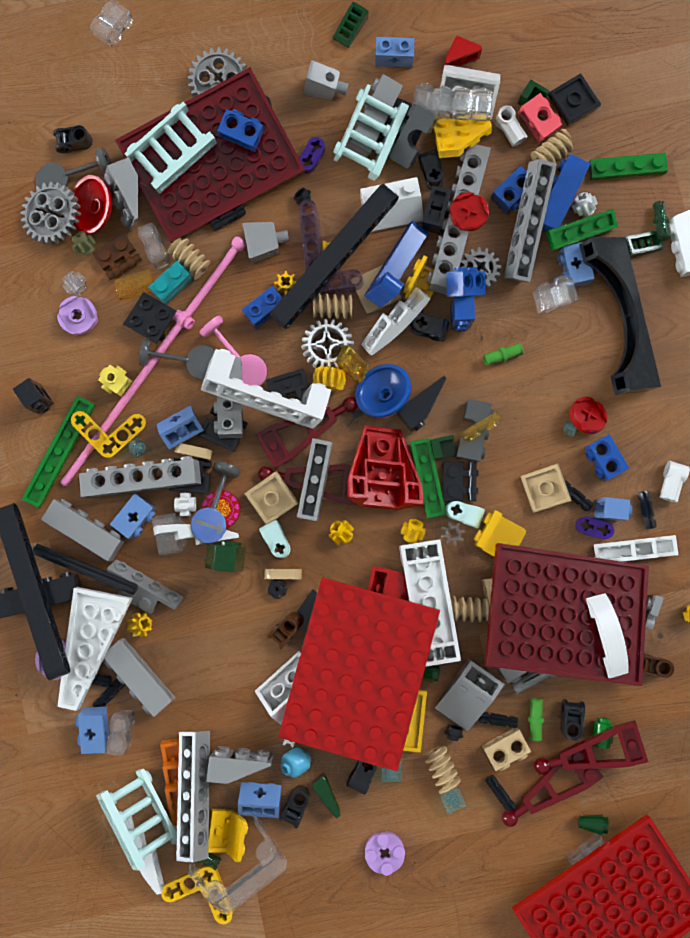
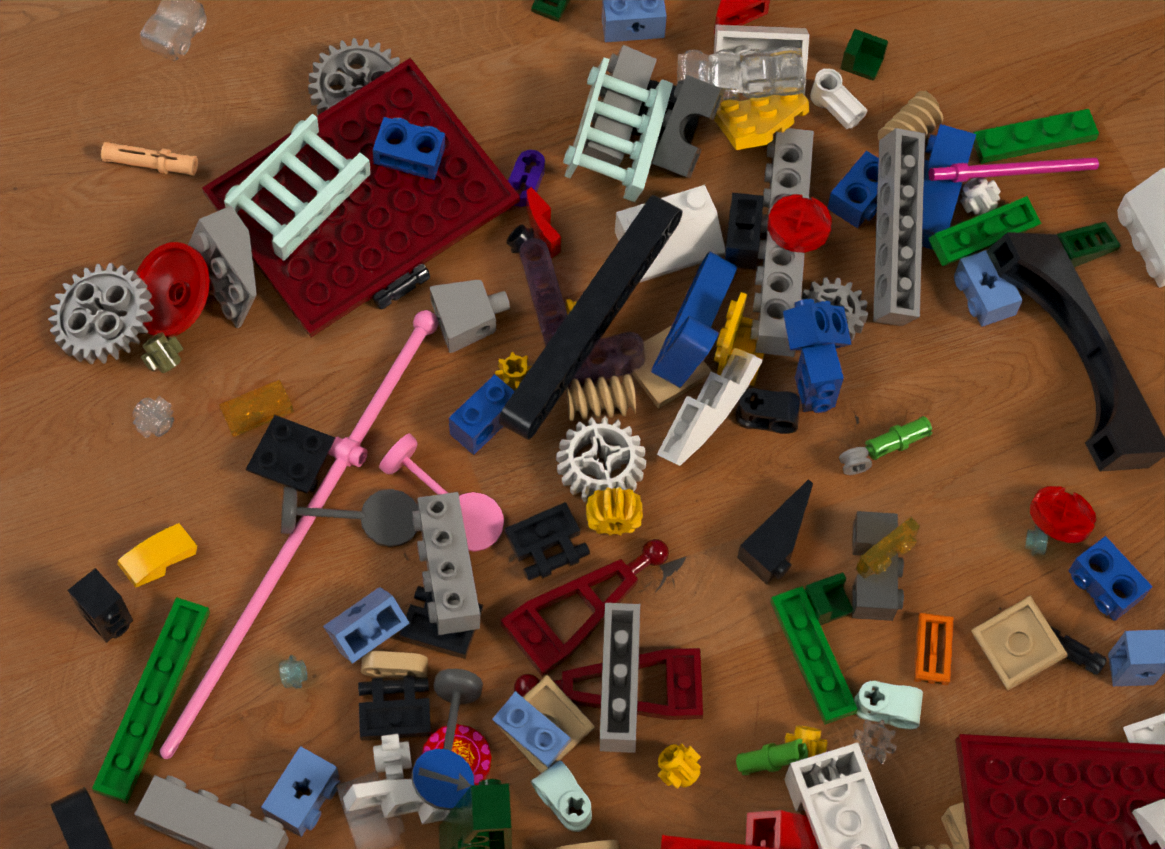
camera: 15 degrees left, 20 degrees down
(56, 173) = (105, 251): dark grey piece -> none
(67, 368) = (152, 556): none -> yellow slope
(68, 139) = (125, 198): black piece -> none
(81, 305) = (164, 451): lavender plate -> none
(91, 487) = (256, 746): light grey brick -> none
(95, 115) = (161, 160): none -> light nougat pin
(104, 438) = (232, 662): yellow beam -> none
(113, 253) = (217, 361): reddish brown plate -> none
(114, 380) = (241, 562): light yellow brick -> none
(153, 245) = (283, 341): clear brick -> none
(170, 283) = (320, 394): teal brick -> none
(188, 258) = (345, 354): tan piece -> none
(261, 503) = (531, 729): none -> medium blue brick
(306, 412) = (495, 545): white plate -> none
(316, 184) = (540, 219): none -> red slope
(323, 82) = (528, 69): light grey torso -> none
(352, 363) = (650, 481): clear yellow plate -> none
(380, 383) = (710, 518): blue dish -> none
(384, 472) = (736, 653): red wedge -> none
(392, 536) = (771, 757): none -> bright green pin
(431, 167) = (723, 173): black piece -> none
(453, 481) = (857, 653): black plate -> none
(474, 365) = (855, 460): none -> light grey bush
(492, 499) = (931, 676): none -> orange tile
(498, 530) = (944, 725): yellow bracket -> none
(529, 114) = (883, 97): coral brick -> none
(555, 295) = (964, 333): clear brick -> none
(574, 99) = (928, 52): black plate -> none
(576, 189) = (962, 172): none -> dark pink bar
(595, 523) = (1118, 692): dark purple beam -> none
(661, 221) = (1106, 206): clear green pin -> none

